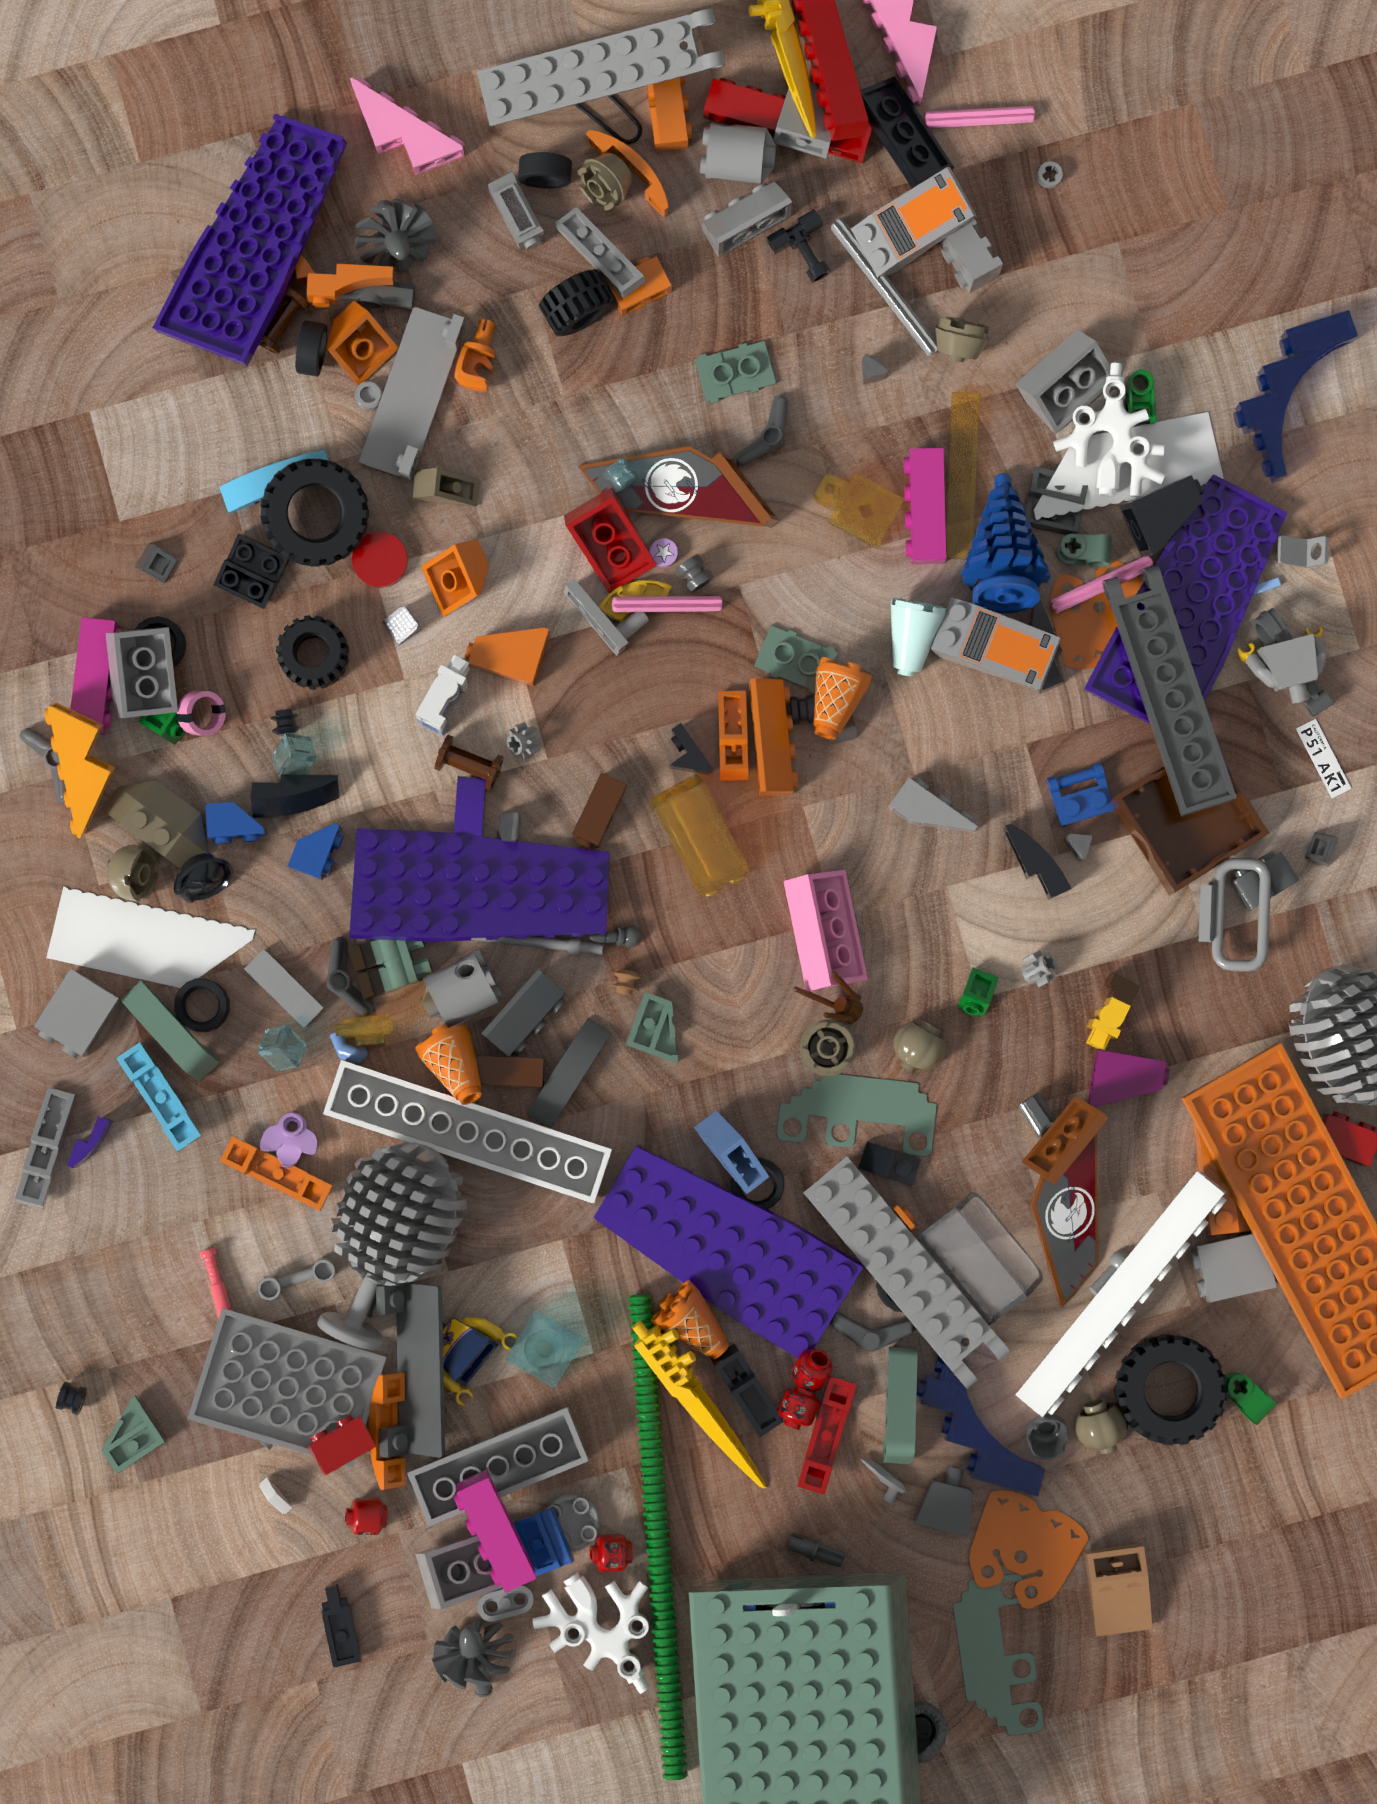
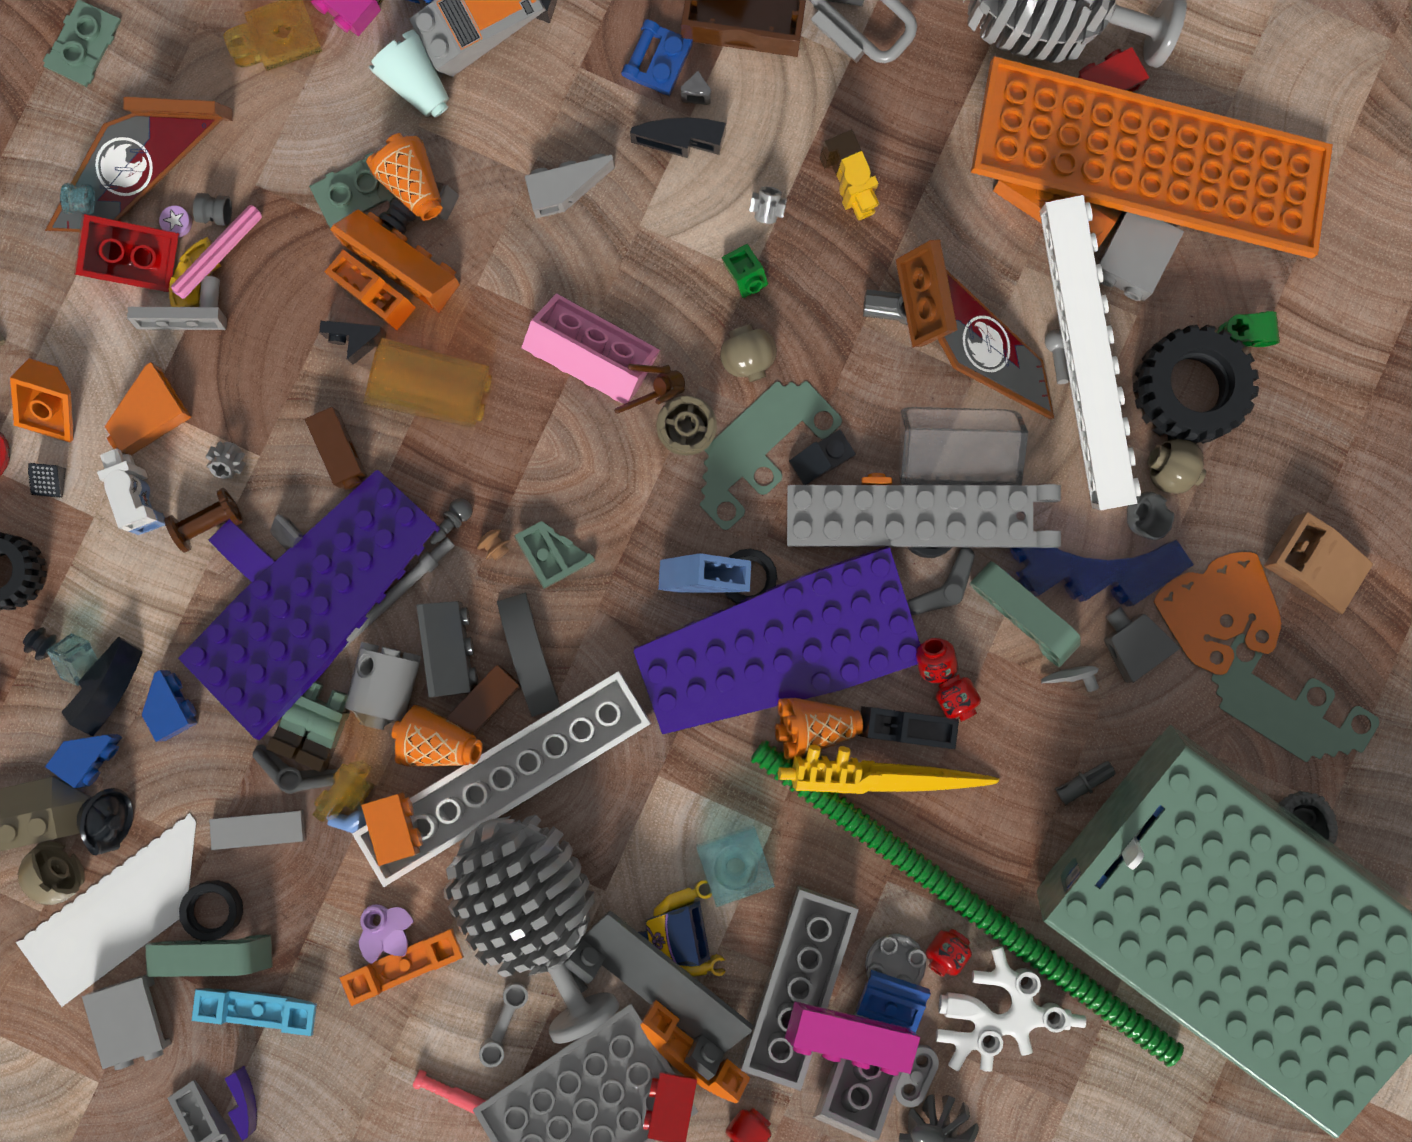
camera: 50 degrees left, 0 degrees up
(282, 1048) = (303, 873): clear light blue panel -> none
(370, 1085) = (392, 828): none -> orange brick
(771, 437) = (156, 55): dark grey piece -> none
(826, 1435) = (999, 695): red slope -> none
(1124, 1076) = (911, 210): magenta slope -> none

